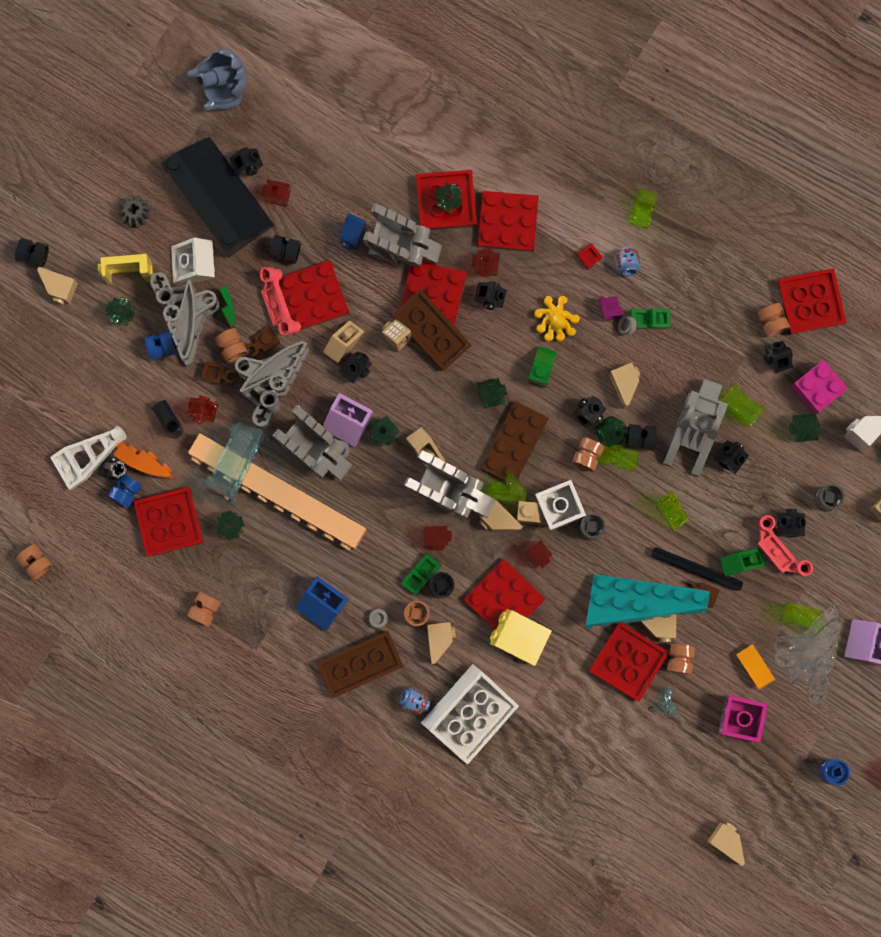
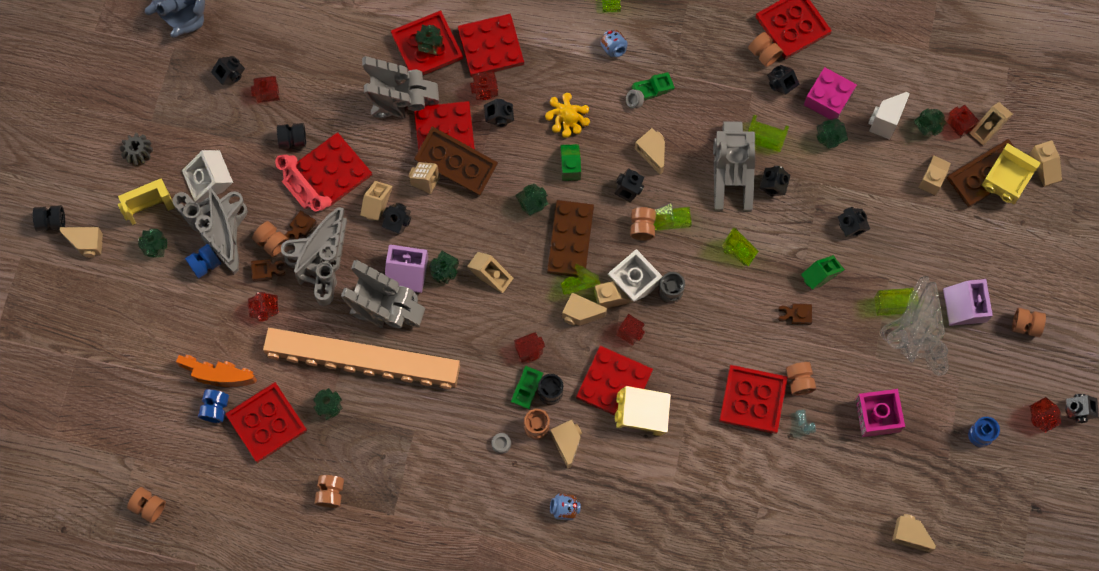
camera: 20 degrees left, 10 degrees down
(68, 466) = (149, 403): white plate -> none
(111, 468) = (193, 389): black piece -> none
(167, 418) = (232, 327): black piece -> none
(218, 195) = (211, 109): black slope -> none
(228, 311) = (257, 208): green slope -> none
(235, 462) = (312, 342): clear light blue windscreen -> none
(322, 603) = (442, 446): blue slope -> none
(352, 232) = (350, 98): blue slope -> none
(360, 664) = (499, 491): reddish brown plate -> none
(450, 488) = (525, 294): light grey piece -> none
(470, 714) = (622, 500): white slope -> none
(589, 256) = (577, 51): red tile -> none
(610, 308) = (613, 90): magenta panel -> none
(611, 431) = (656, 195): clear green brick -> none
(634, 438) = (685, 192): black wheel -> none
(634, 601) = (737, 340): teal wing -> none
(661, 628) = (768, 355): tan slope -> none
(697, 569) = (783, 293): black axle -> none
(755, 667) = (872, 362): light orange slope -> none
(777, 552) = (850, 251): coral plate -> none
(829, 497) = (878, 187): dark grey wheel -> none

